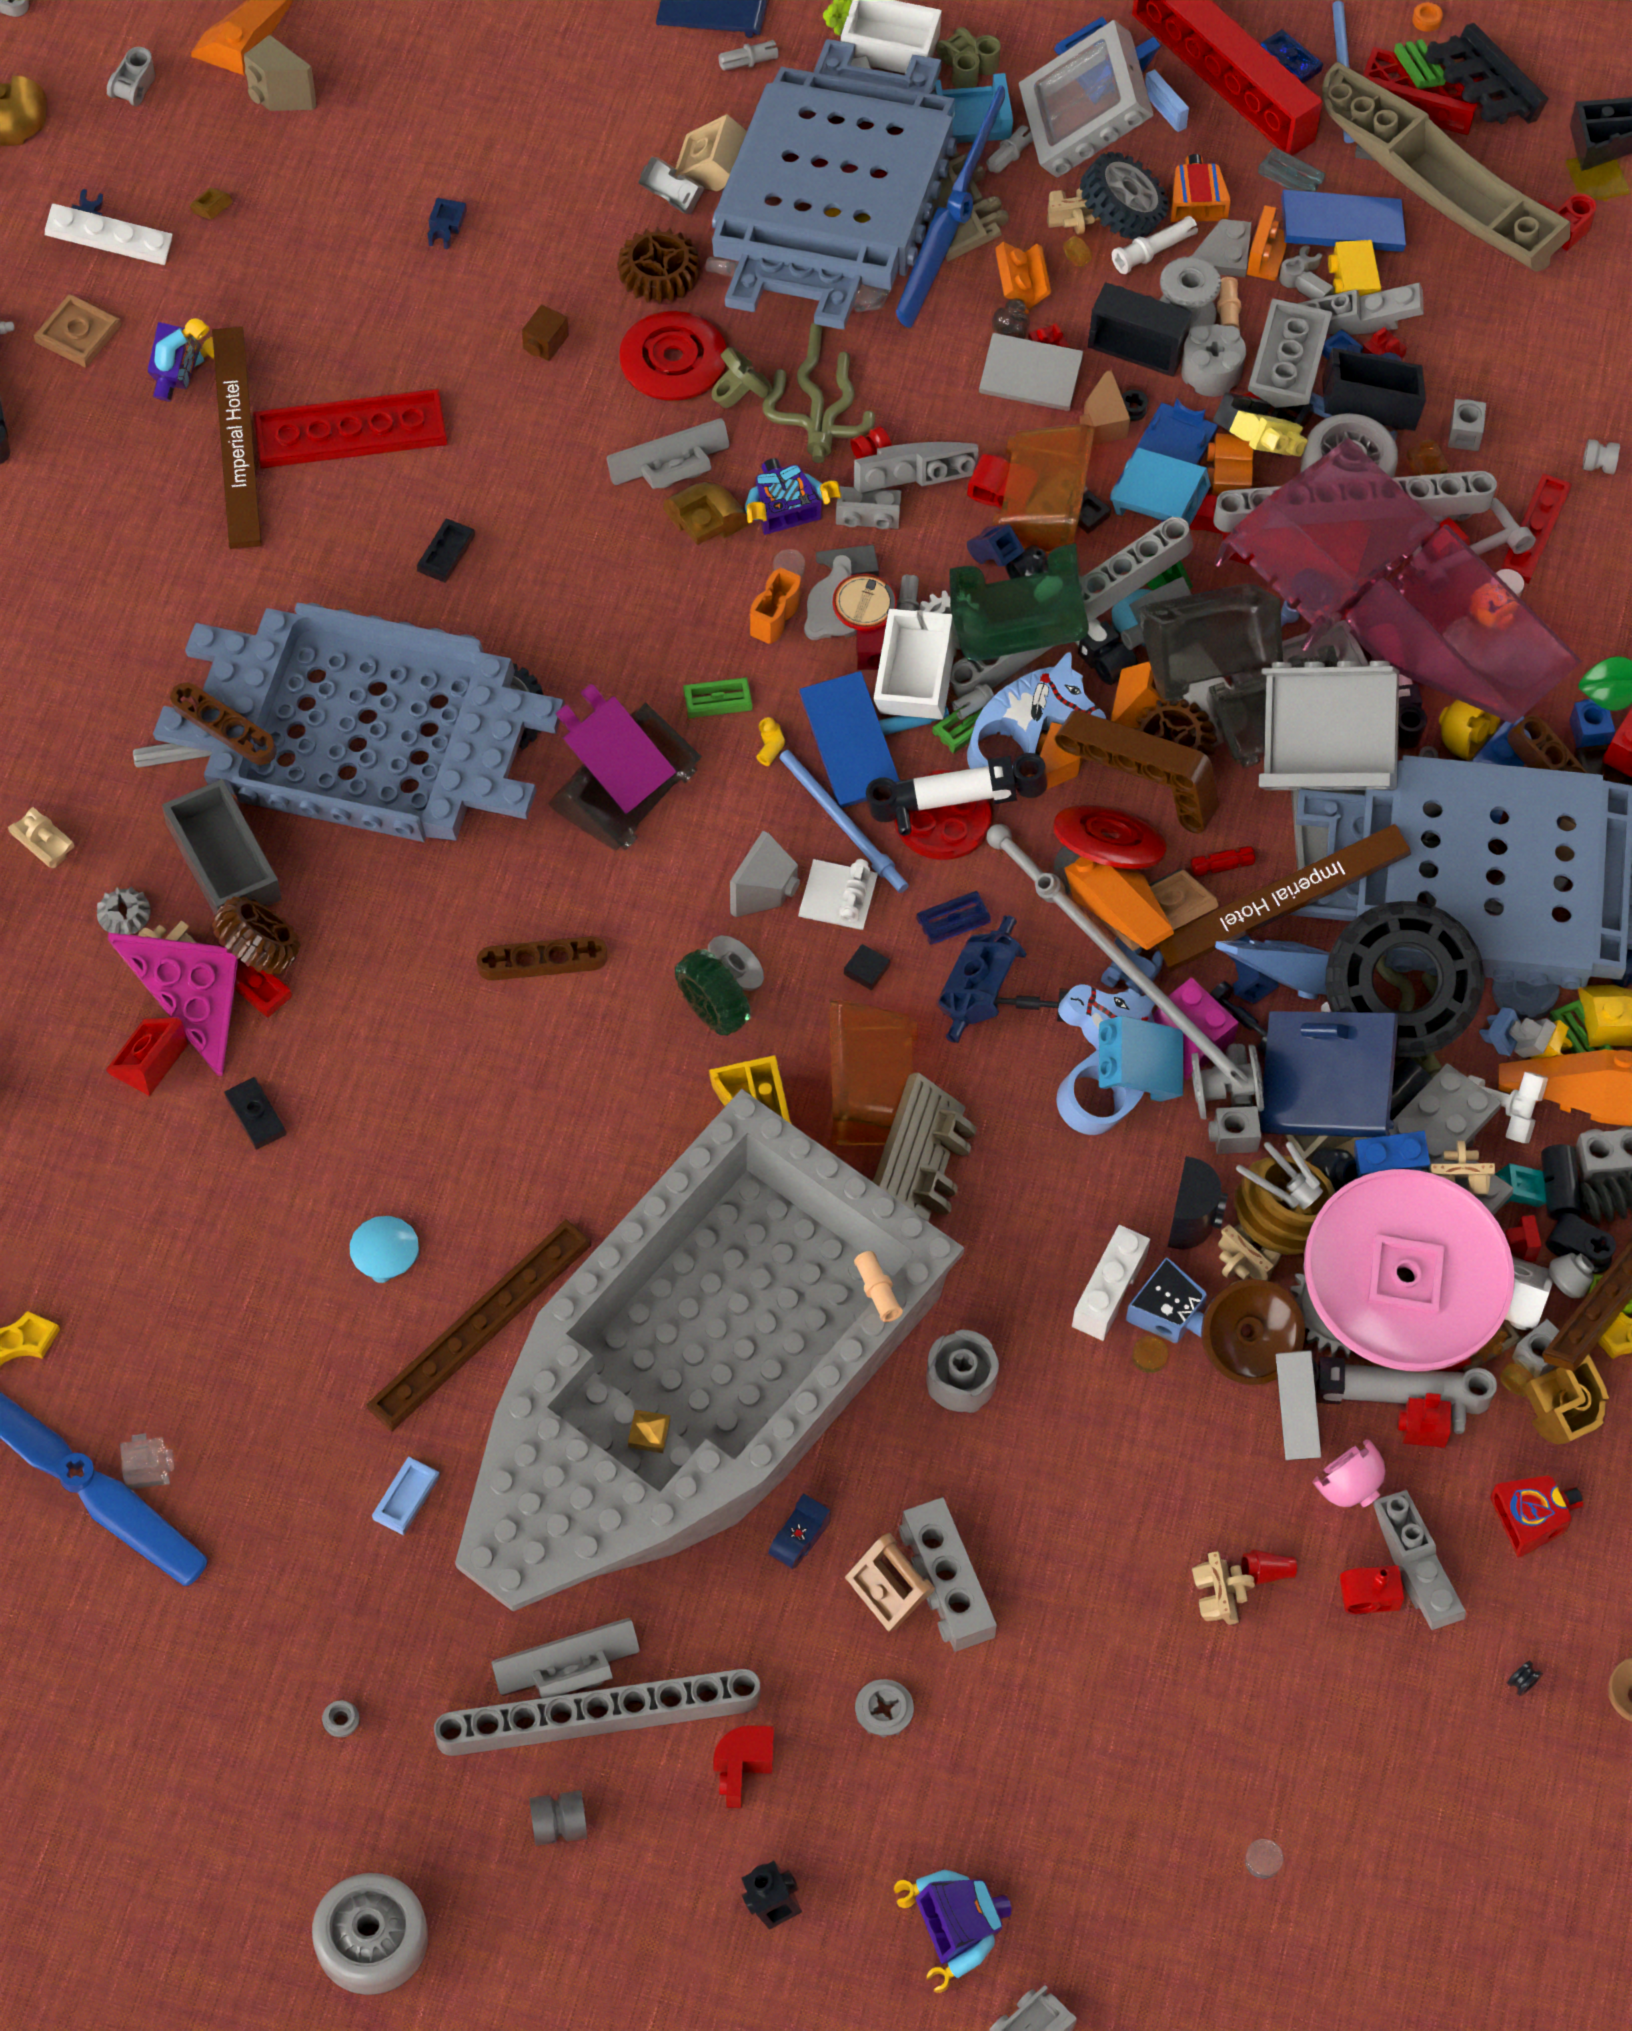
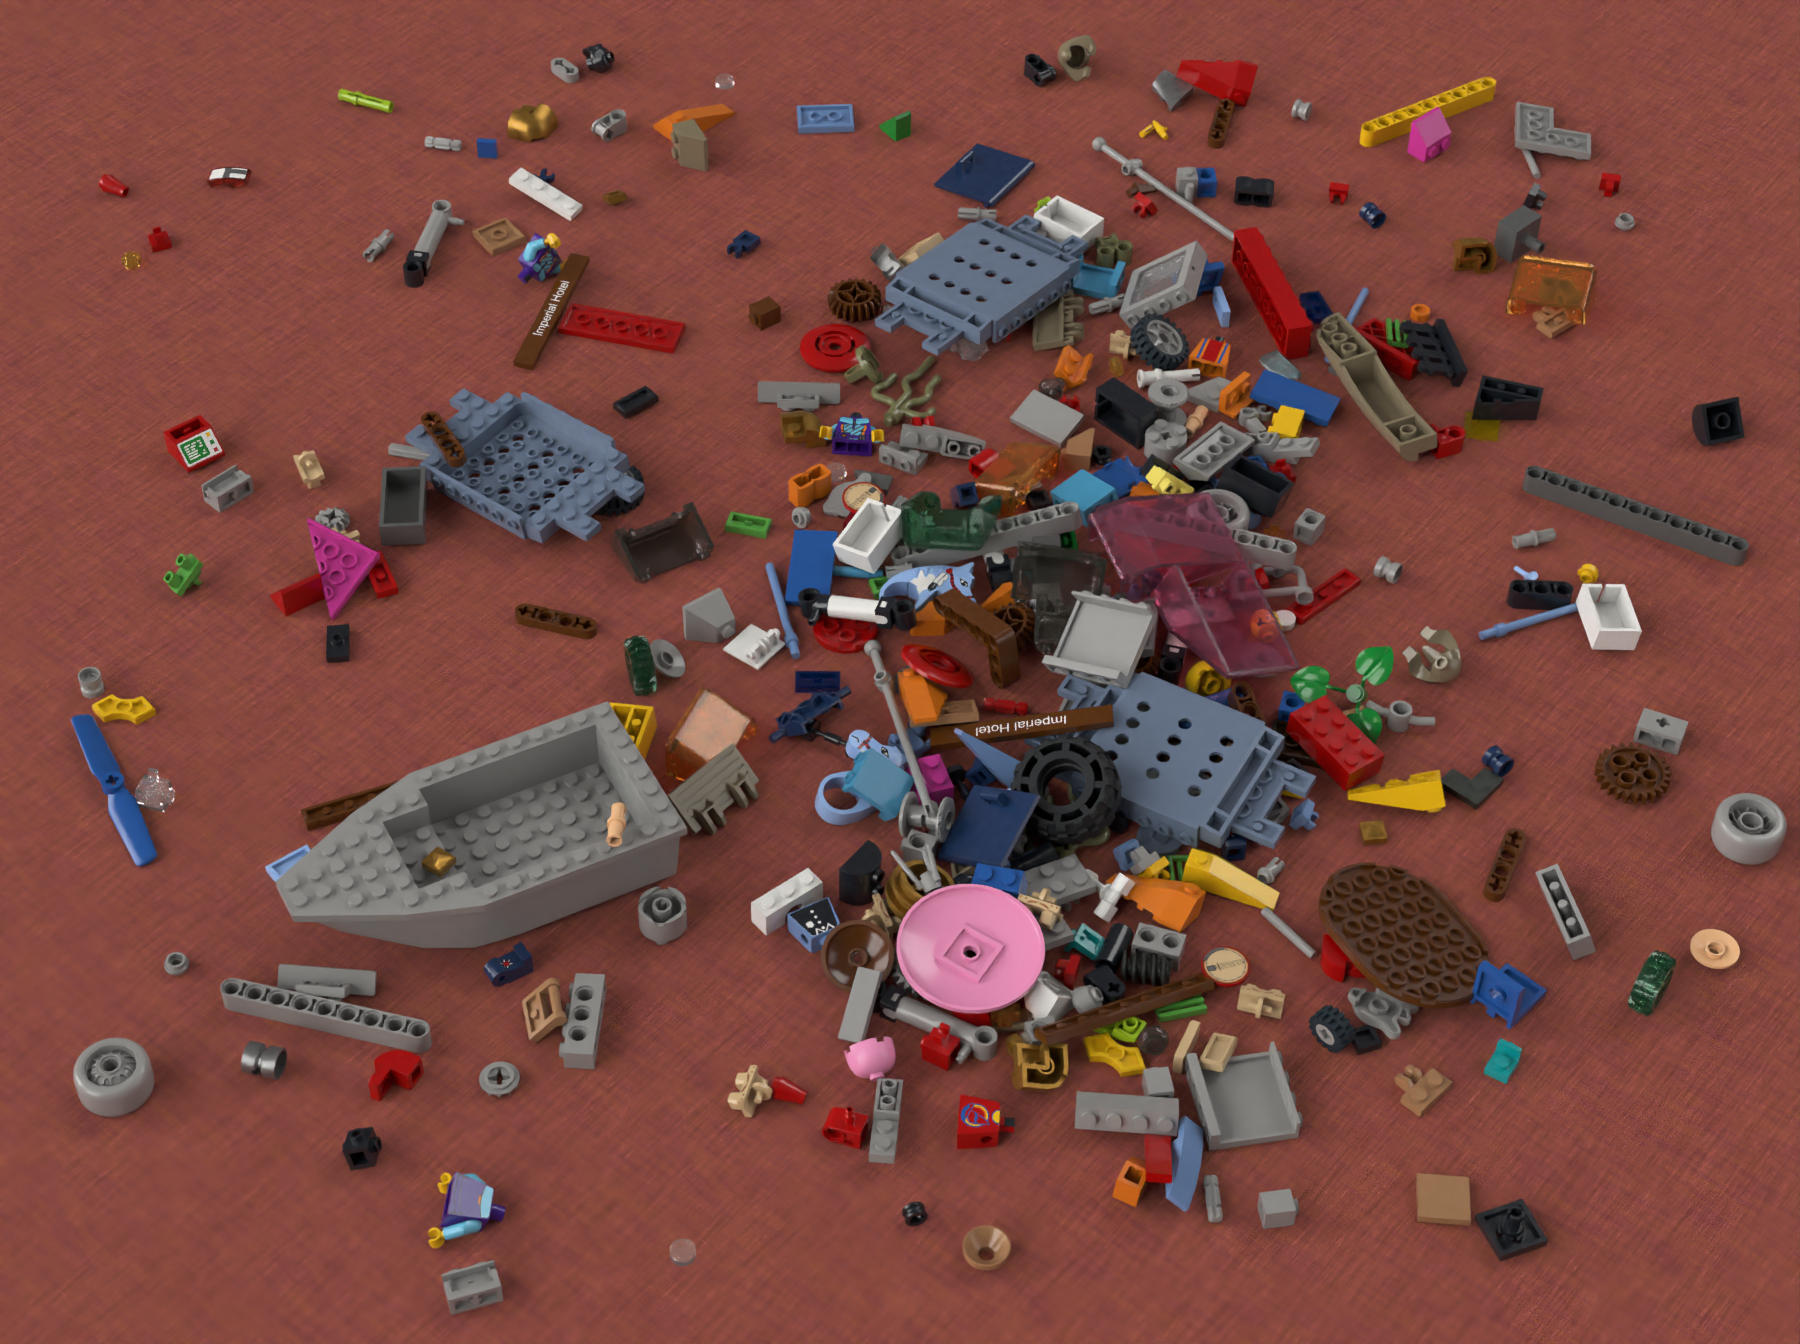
camera: 25 degrees right, 15 degrees down
(256, 935) = (393, 549): reddish brown gear -> none
(384, 1248) = (365, 735): medium azure dish -> none
(615, 750) = (661, 522): magenta tile -> none
(773, 740) = (766, 557): yellow arm -> none
(787, 659) = (801, 517): none -> light grey plate
(866, 967) = (747, 689): black tile -> none
(945, 223) = (1036, 326): blue piece -> none
(1150, 1354) = (789, 951): clear yellow tile -> none

